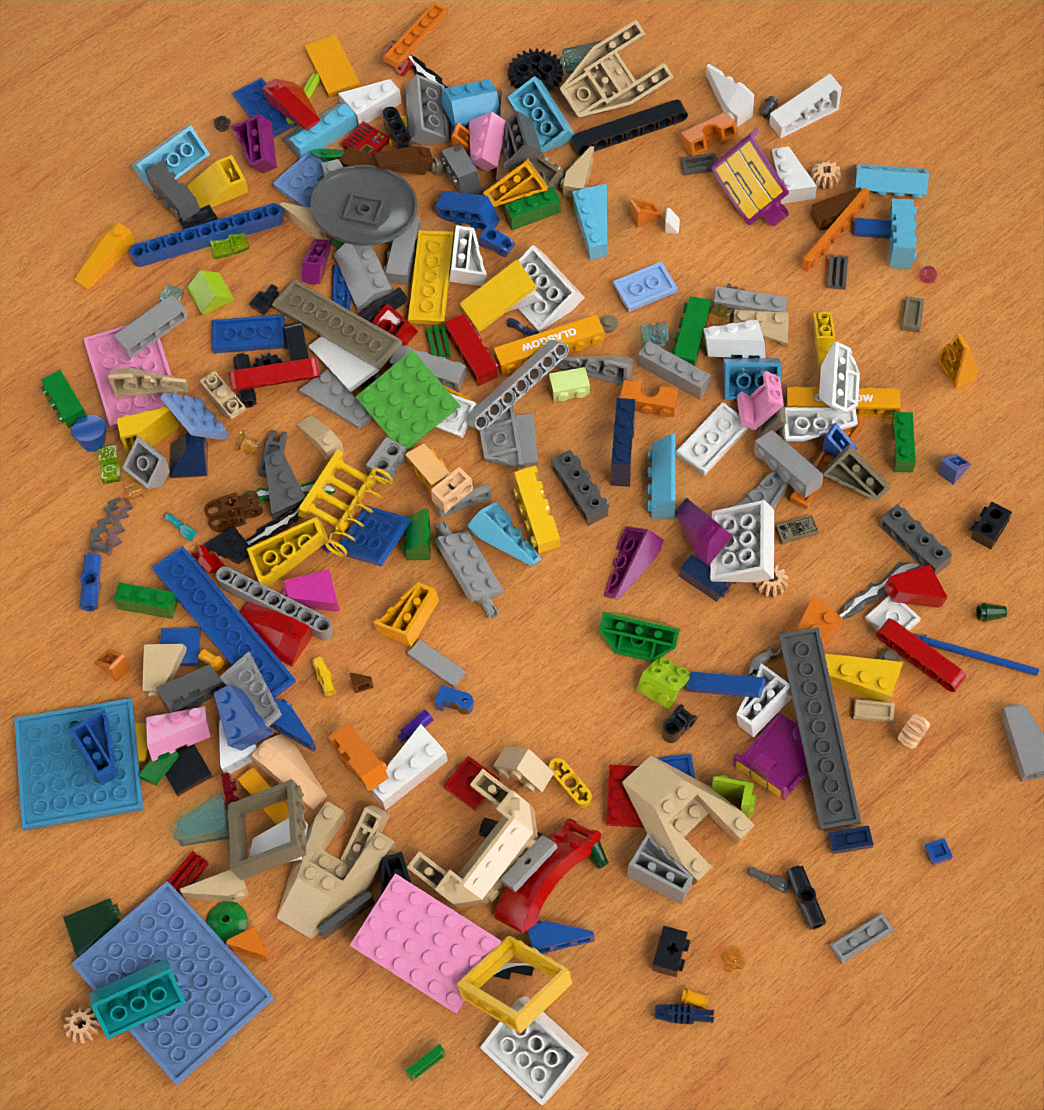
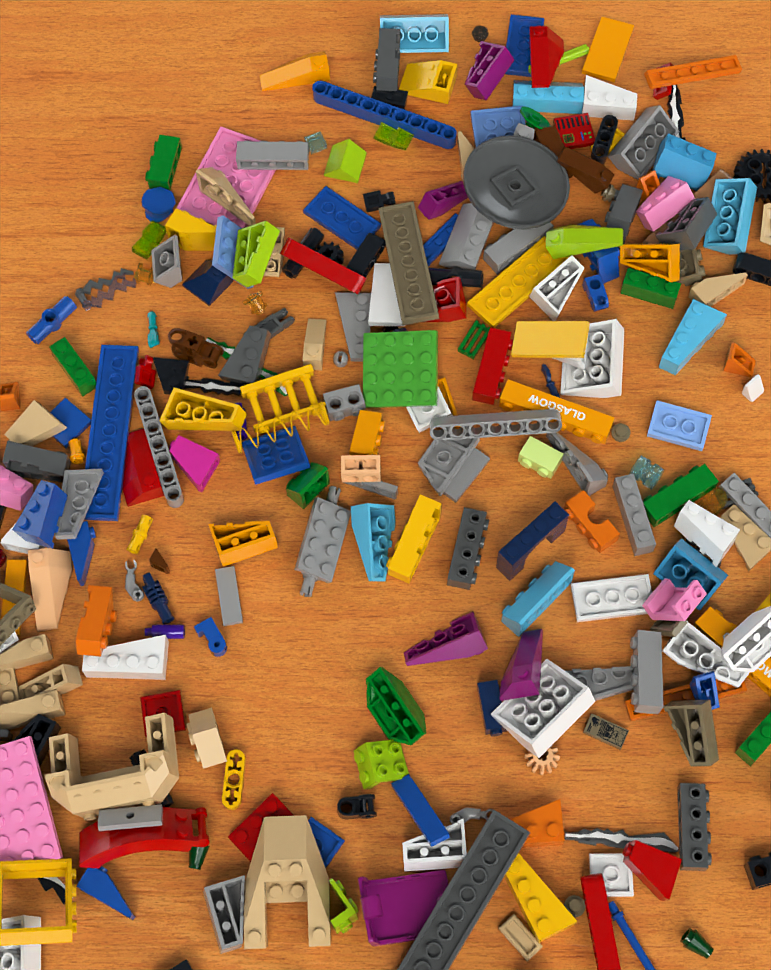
camera: 40 degrees right, 5 degrees up
(212, 403) = (253, 252): none -> lime wedge
(347, 435) = (344, 360): none -> light grey hinge
(354, 718) = (130, 585): none -> light grey arm
(383, 708) = (157, 598): none -> dark blue hinge
(447, 372) = (450, 360): light grey brick -> none
(451, 210) = (581, 239): none -> lime wedge

